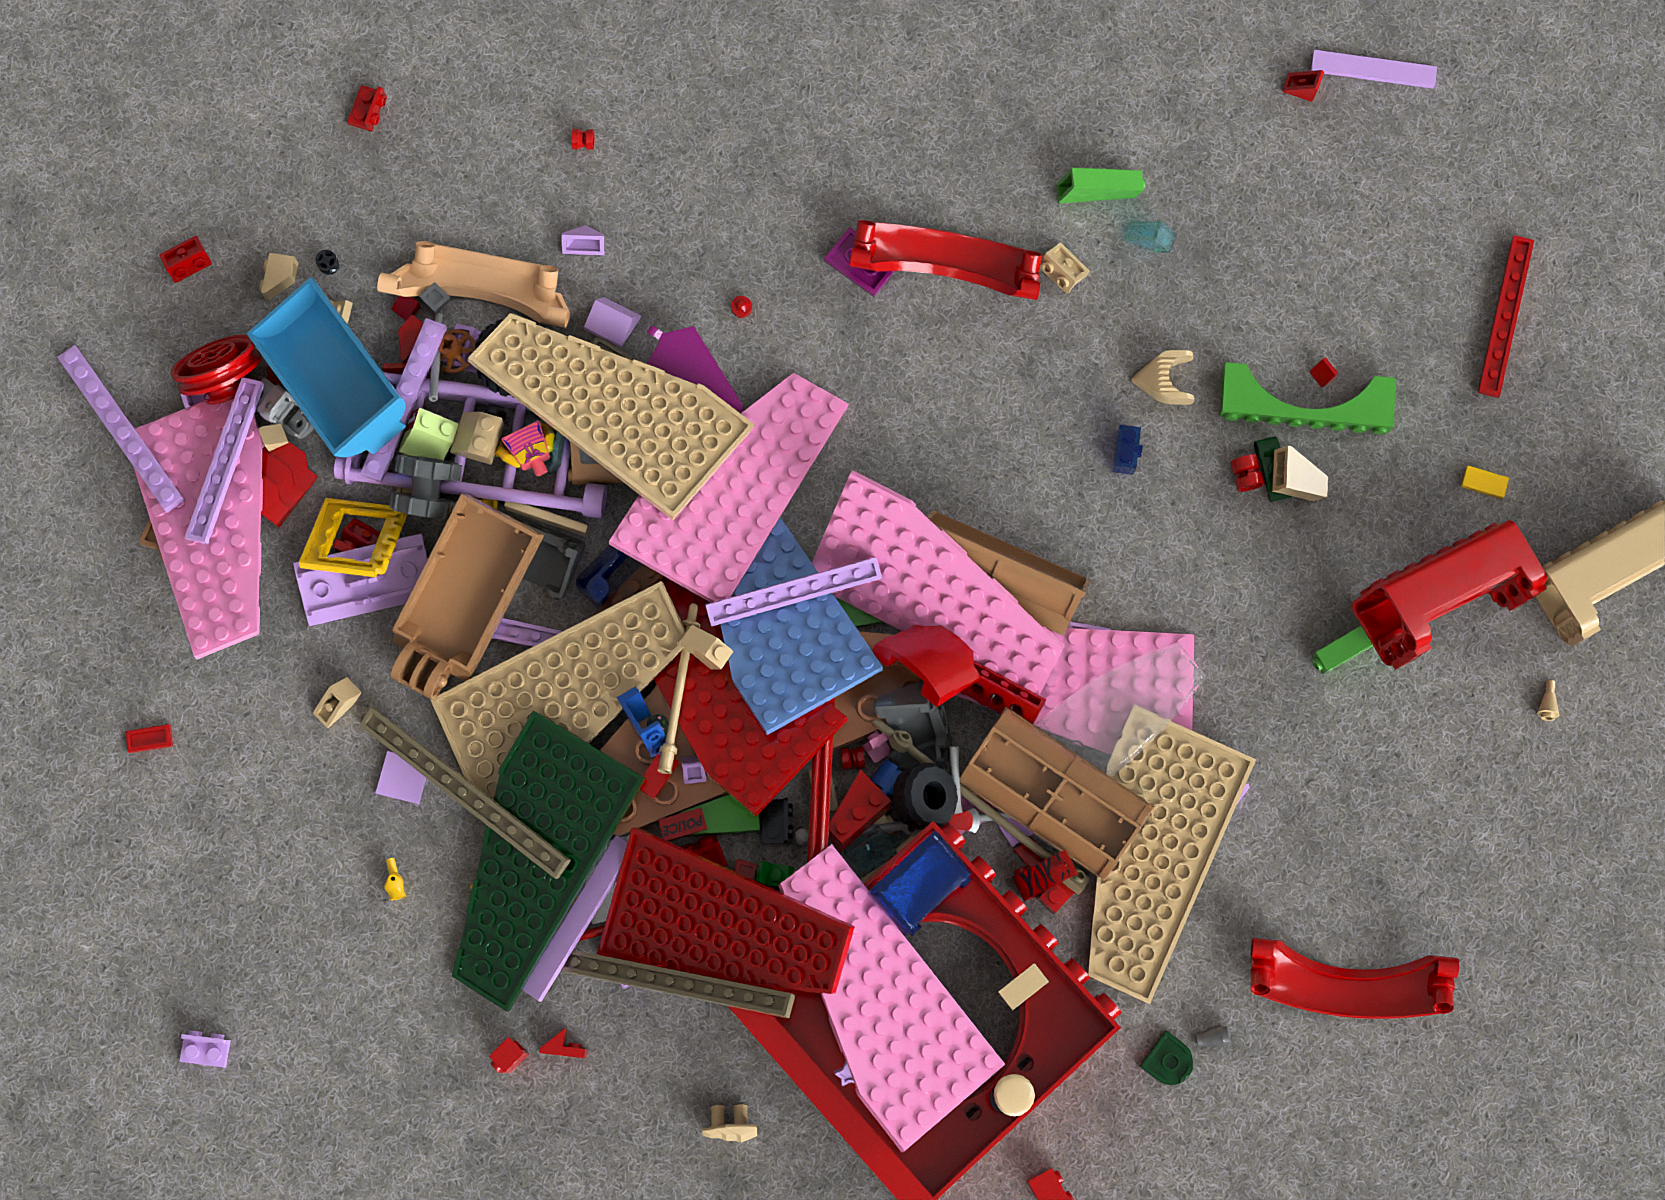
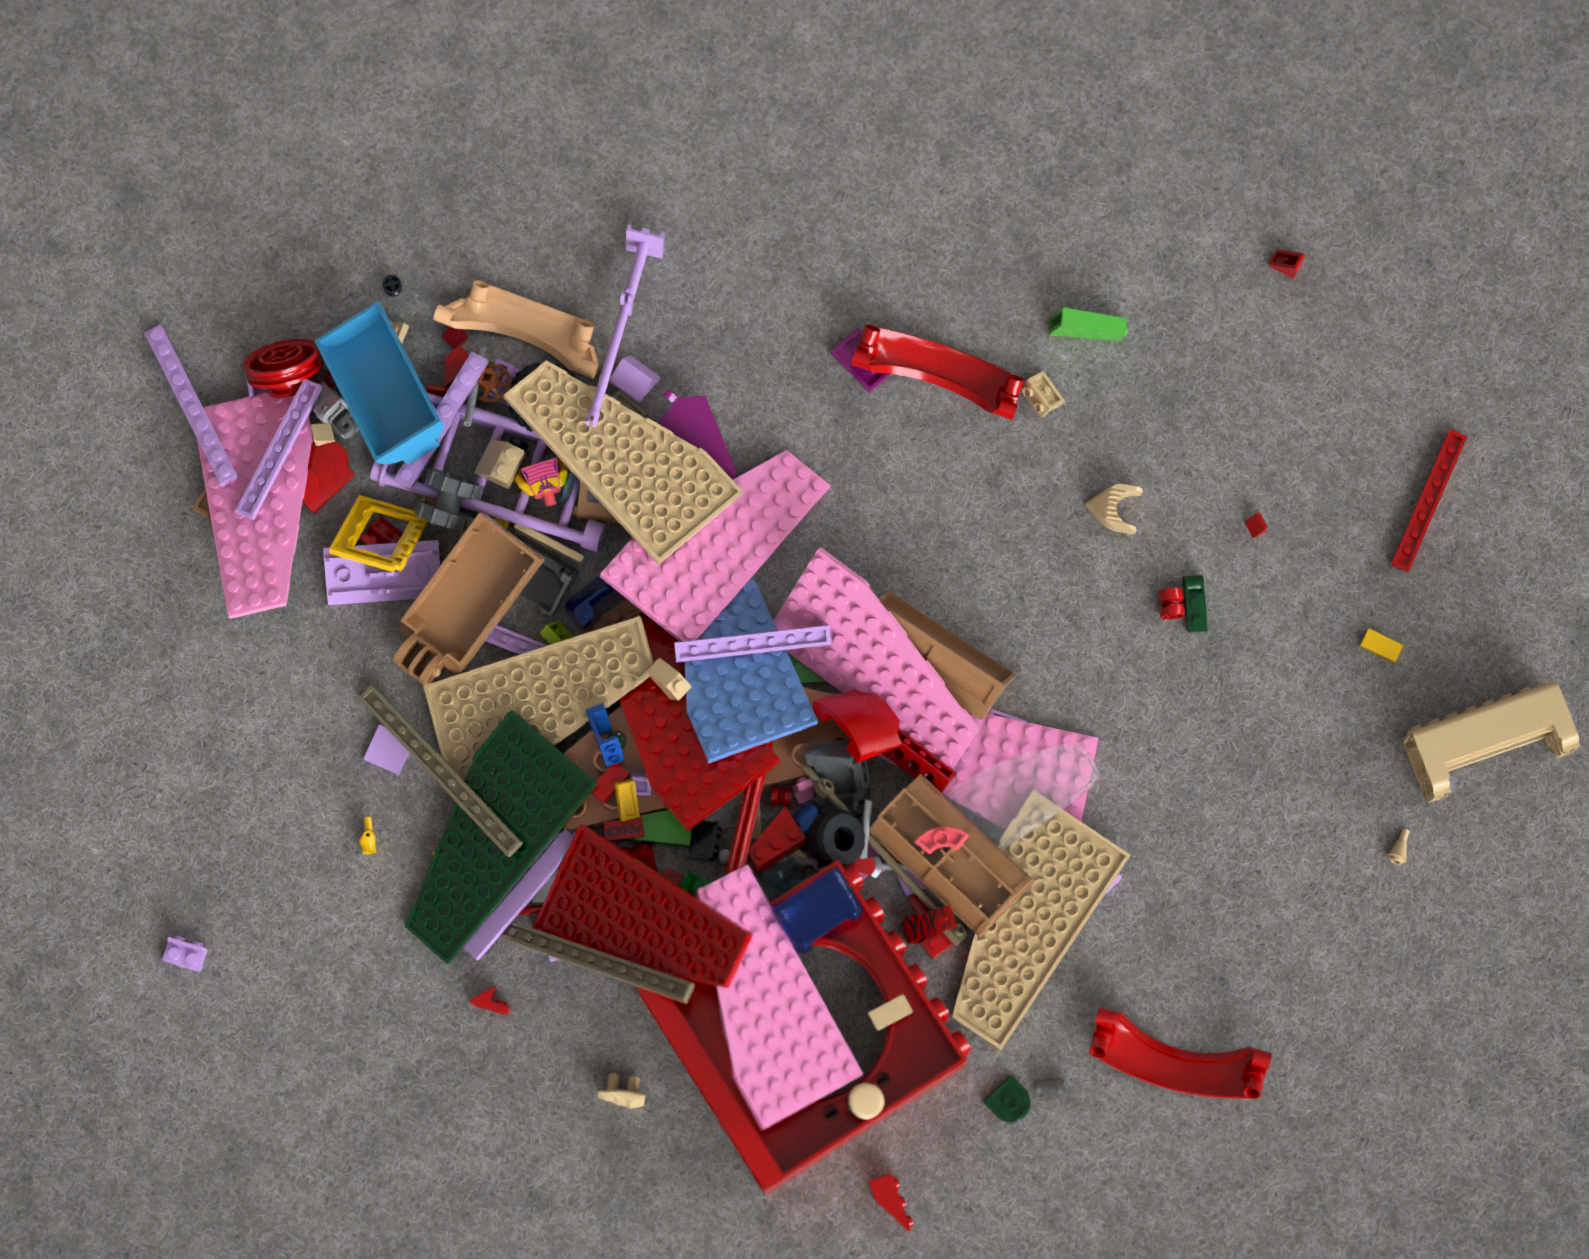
camera: 10 degrees right, 0 degrees up
(149, 738) = (175, 679): red tile -> none
(185, 259) = (268, 263): red bracket -> none
(279, 274) = (348, 290): tan slope -> none
(336, 701) = (342, 674): tan slope -> none
(367, 107) = (447, 151): red bracket -> none
(428, 435) = (457, 454): yellowish green slope -> none
(434, 298) = (481, 333): flat silver panel -> none
(508, 1056) = (442, 1001): red piece -> none
(569, 615) = (555, 632): none -> lime piece
(583, 139) = (630, 210): red wheel -> none
(583, 241) = (611, 302): lavender slope -> none
(597, 173) = (643, 244): none -> lavender piece
(668, 749) = (622, 761): tan bar -> none
(681, 791) = (627, 800): none -> yellow tile
(741, 306) = (750, 383): red tile -> none
(844, 1074) = (725, 1059): lavender piece -> none
(1046, 775) = (941, 837): none -> coral tile
(1127, 449) = (1068, 565): clear blue brick -> none
(1151, 236) = (1125, 378): clear light blue slope -> none
(1247, 400) = (1183, 538): bright green arch -> none
(1297, 475) = (1214, 613): slope -> none
(1341, 650) = (1237, 768): bright green slope -> none
(1374, 69) = (1354, 257): lavender tile -> none
(1401, 606) = (1283, 738): red piece -> none

